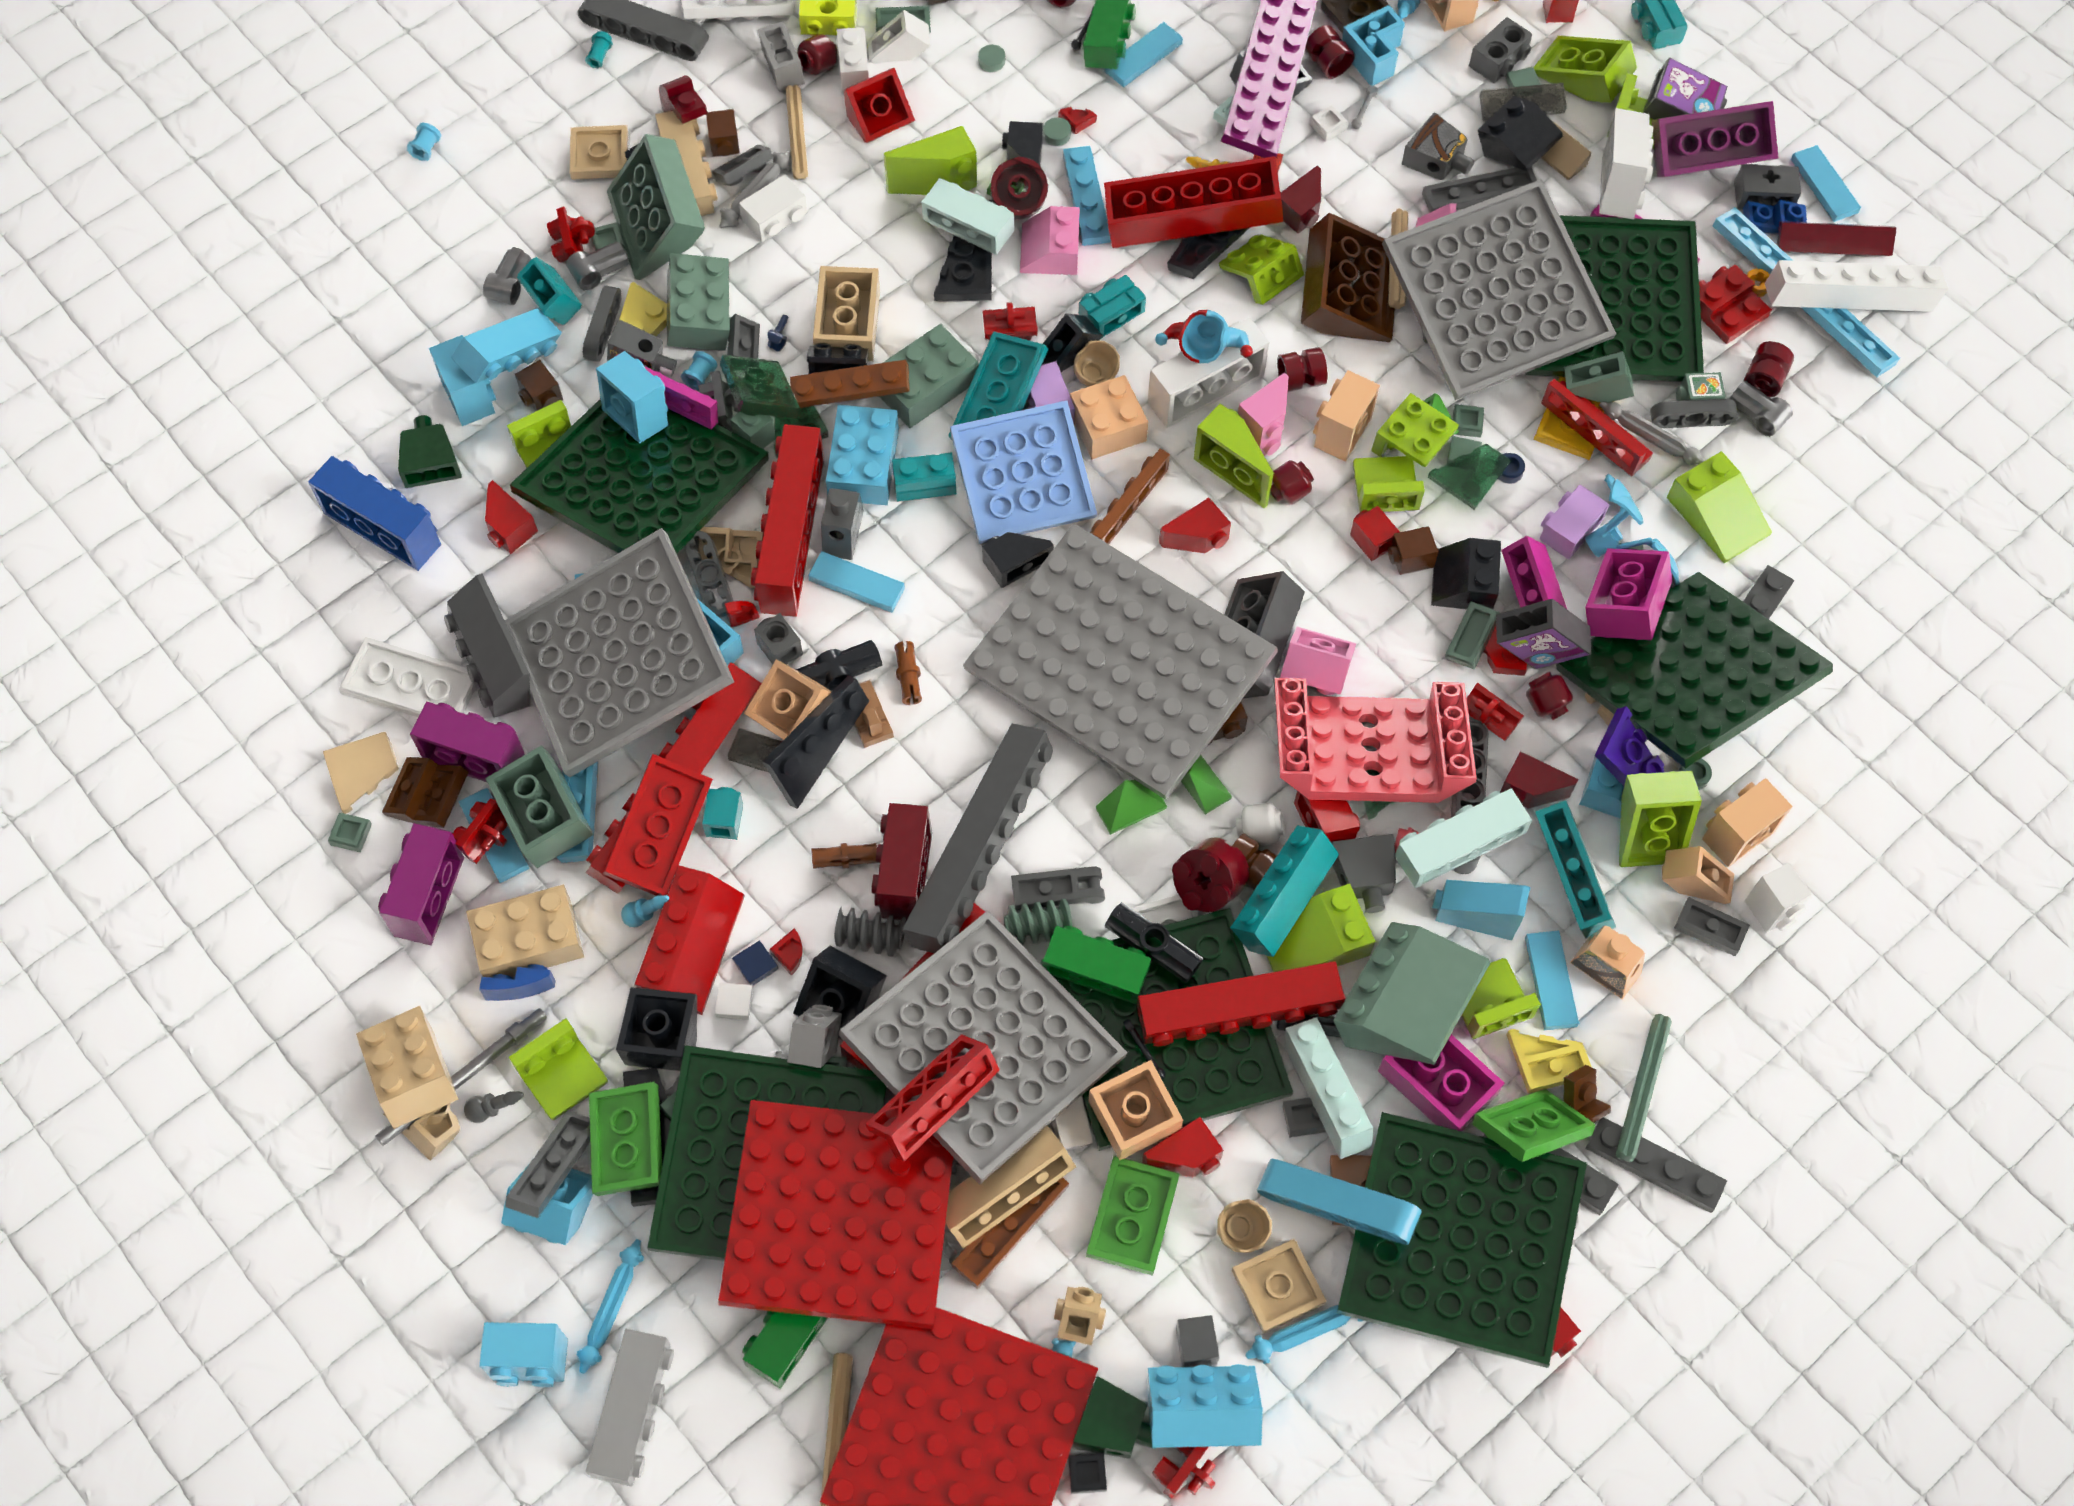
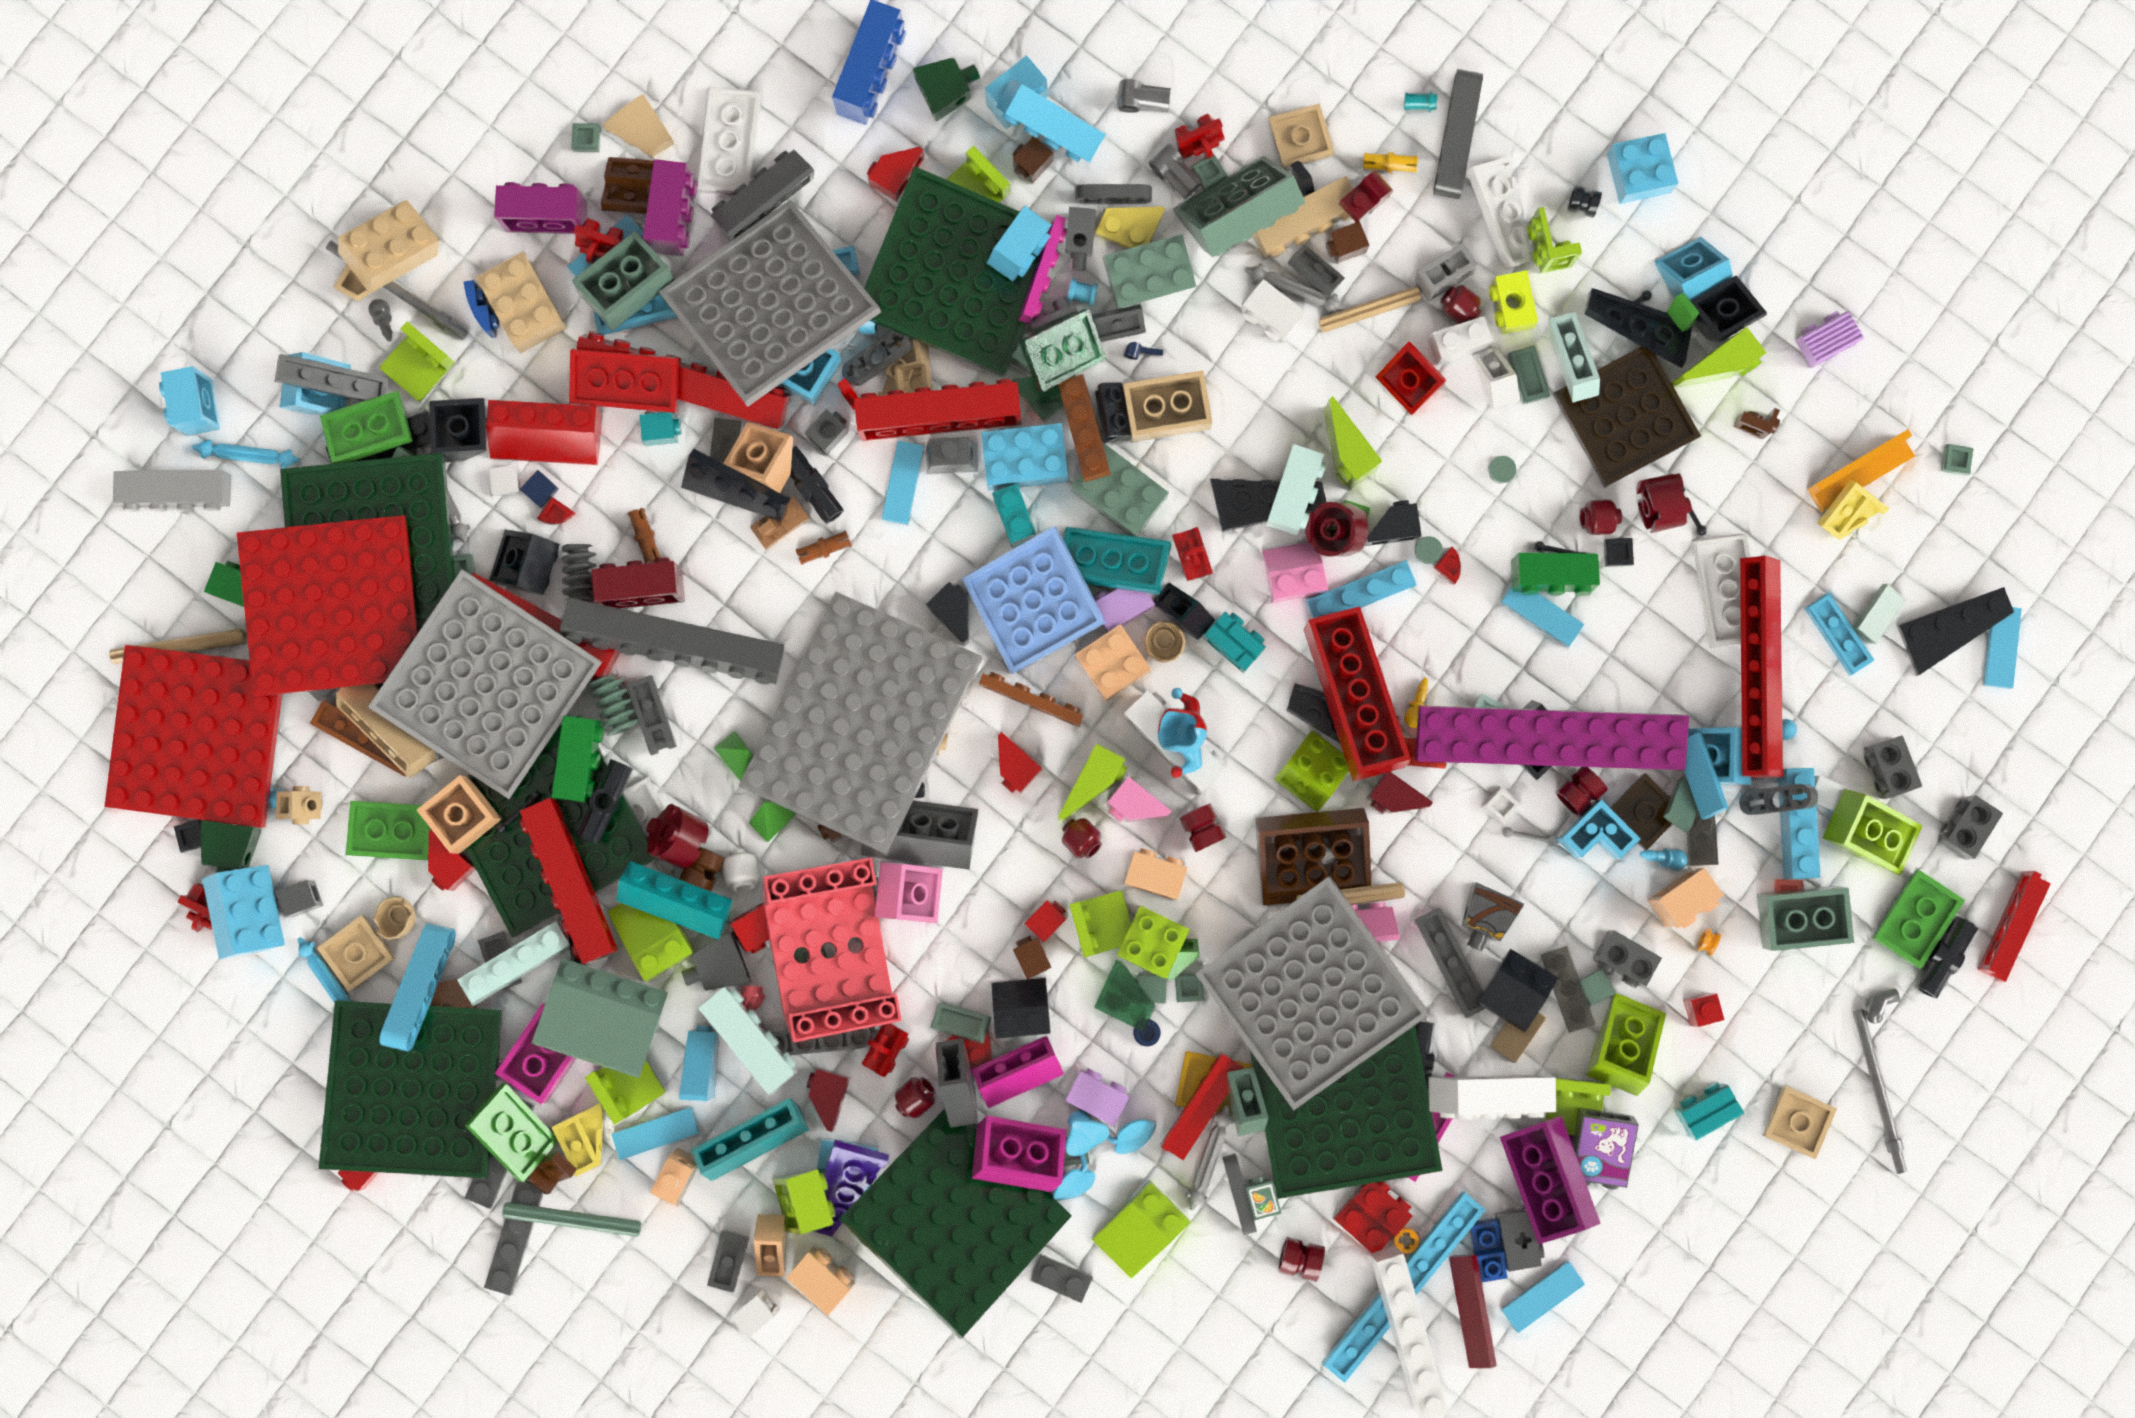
camera: 80 degrees right, 20 degrees up
(549, 291) = (1130, 138): teal brick -> none
(642, 910) = (560, 386): medium azure bar -> none
(650, 85) = (1390, 162): none -> yellow pin
(814, 1036) = (472, 551): light grey brick -> none
(939, 1096) = (418, 658): red fence -> none
(1766, 413) = (1256, 1262): flat silver piece -> none

